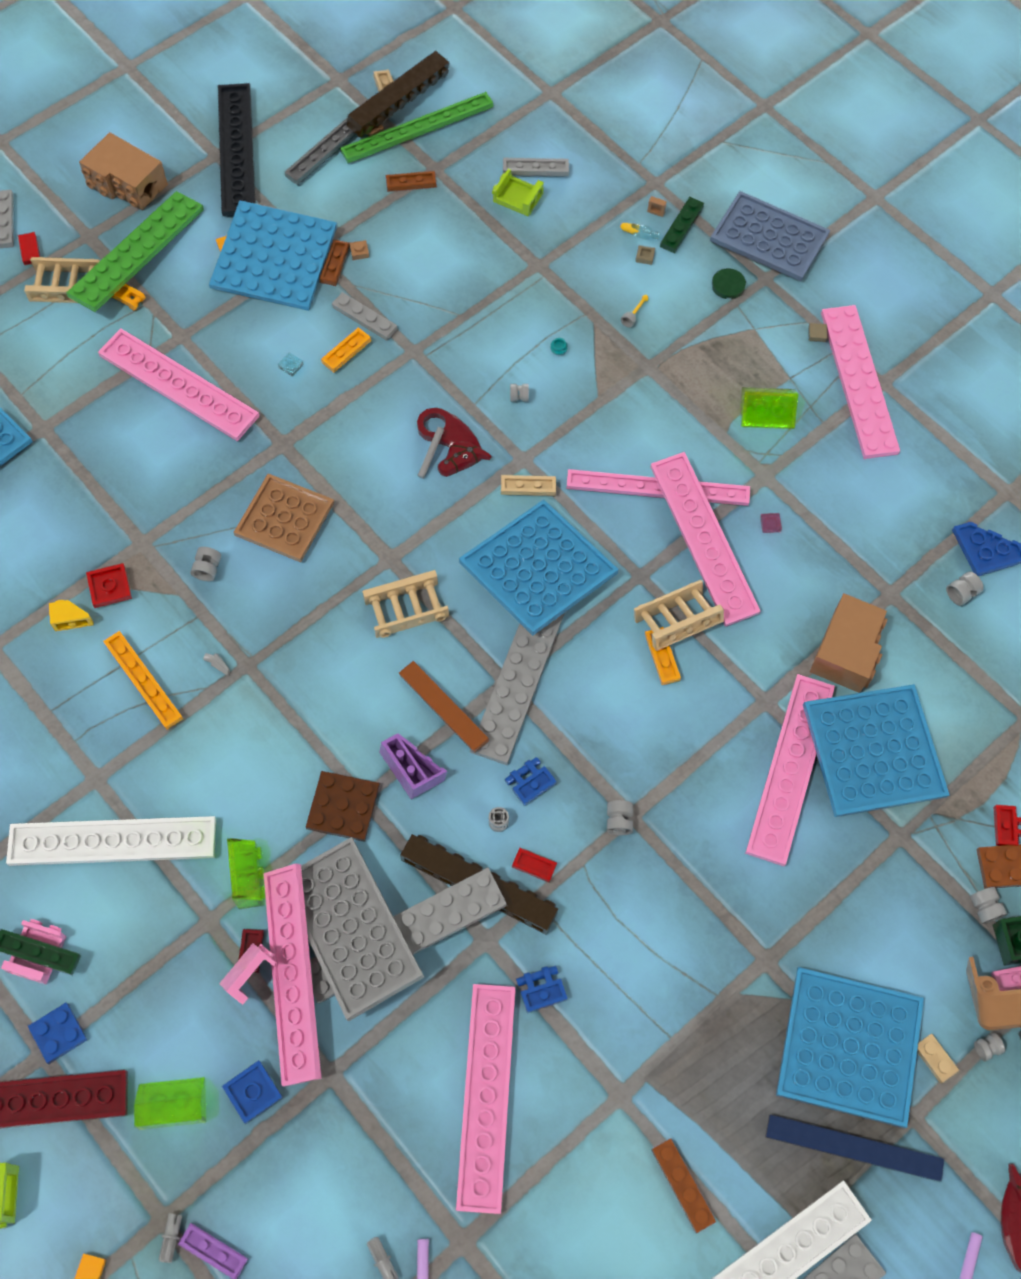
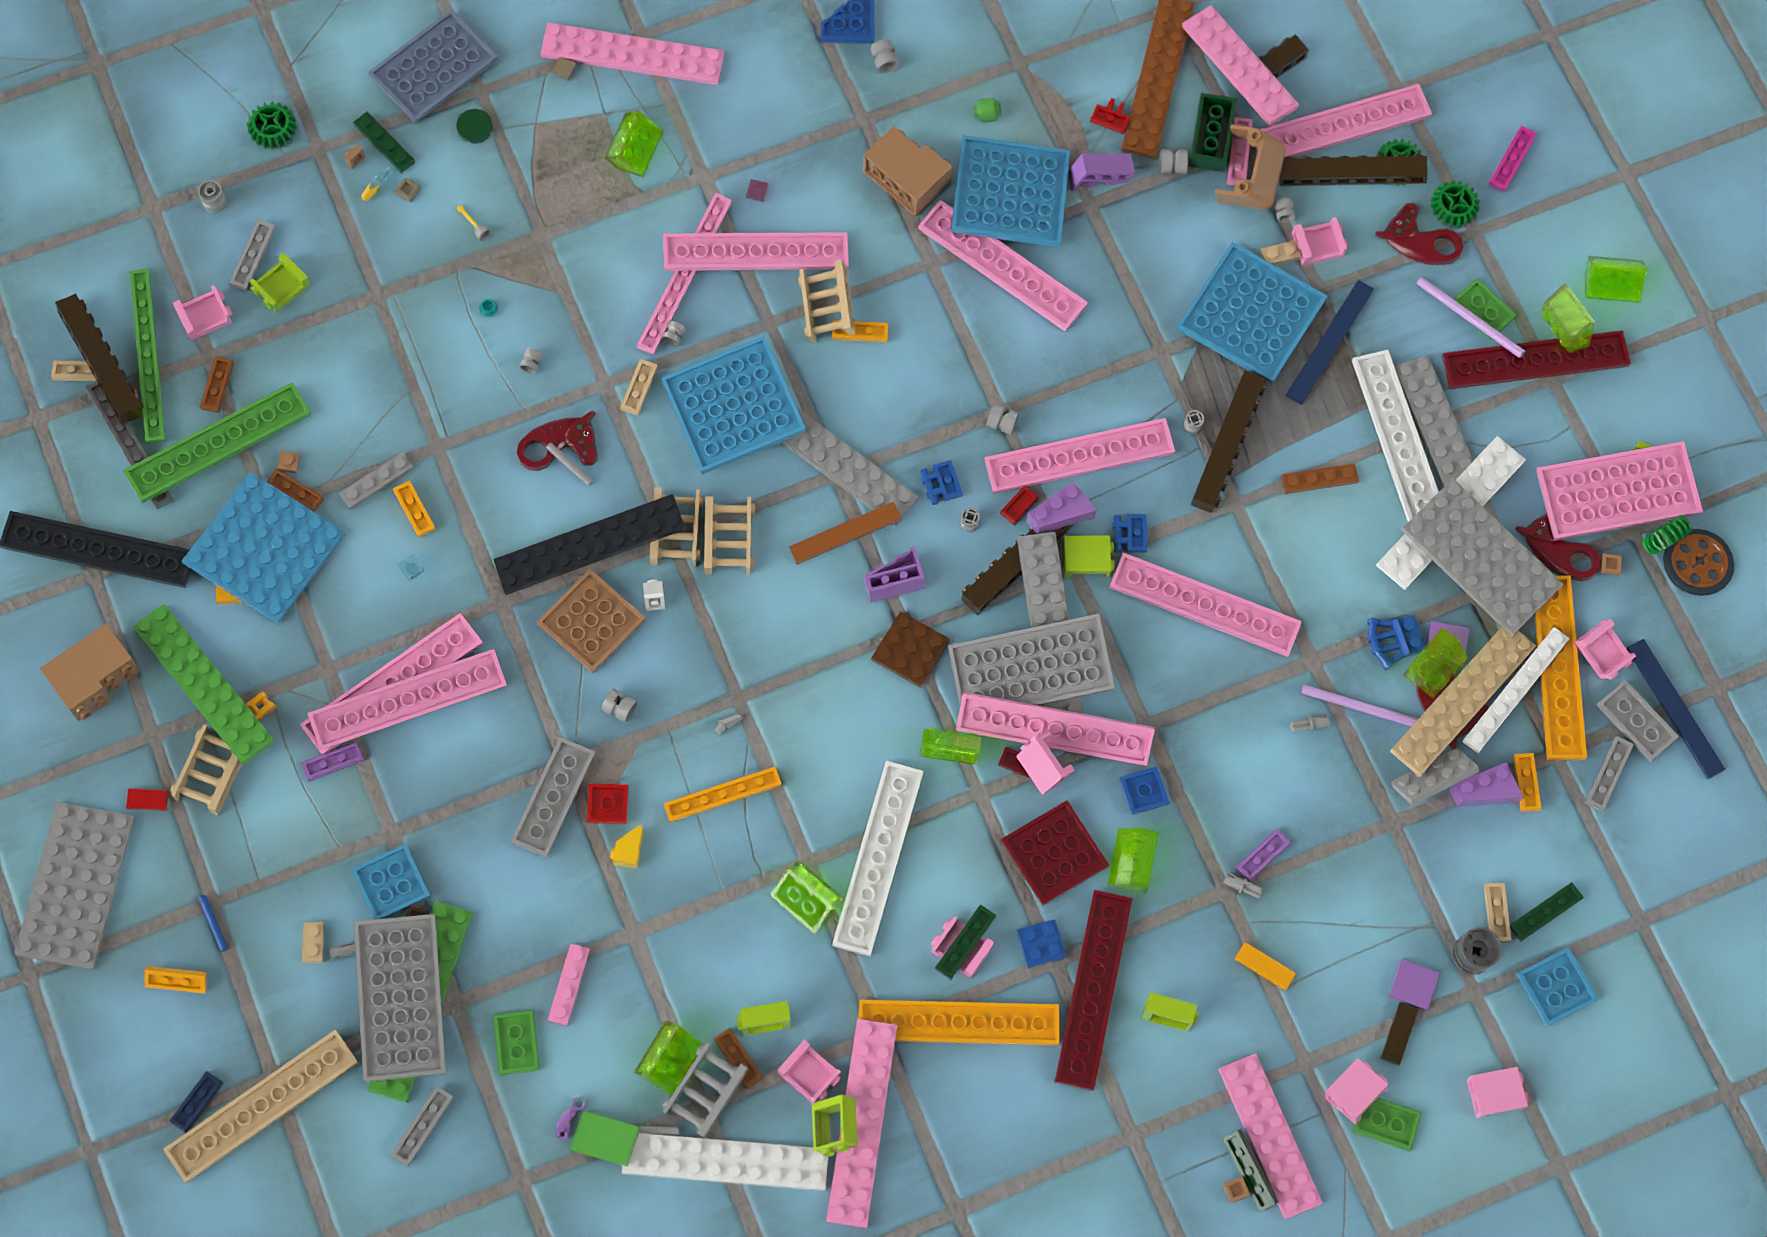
camera: 75 degrees left, 5 degrees up
(57, 786) = (806, 896): none -> clear neon green slope
(96, 364) = (332, 761): none -> medium lavender tile
(104, 539) = (553, 797): none -> light grey plate
(158, 1017) = (1054, 853): none -> dark red plate
(163, 397) = (406, 699): none -> bright pink plate
(323, 557) = (653, 595): none -> white slope
(356, 194) = (217, 442): none -> bright green plate
(357, 492) = (589, 544): none -> black plate
(396, 540) = (657, 552): none -> tan fence
(468, 150) = (203, 314): none -> bright pink panel
(499, 951) = (1087, 555): none -> lime panel
(533, 902) = (1060, 510): none -> medium lavender wedge
(575, 122) = (211, 196): none -> light grey wheel
(597, 497) = (674, 333): none -> light grey wheel
(611, 911) = (1079, 455): none -> bright pink plate
(659, 142) = (272, 132): none -> green gear
(687, 1064) = (1227, 442): none -> dark brown brick
(691, 1021) = (1193, 426): none -> light grey wheel
(943, 832) = (1101, 168): none -> medium lavender wedge
(955, 701) = (987, 110): none -> bright green head
(969, 1099) = (1320, 242): none -> bright pink panel

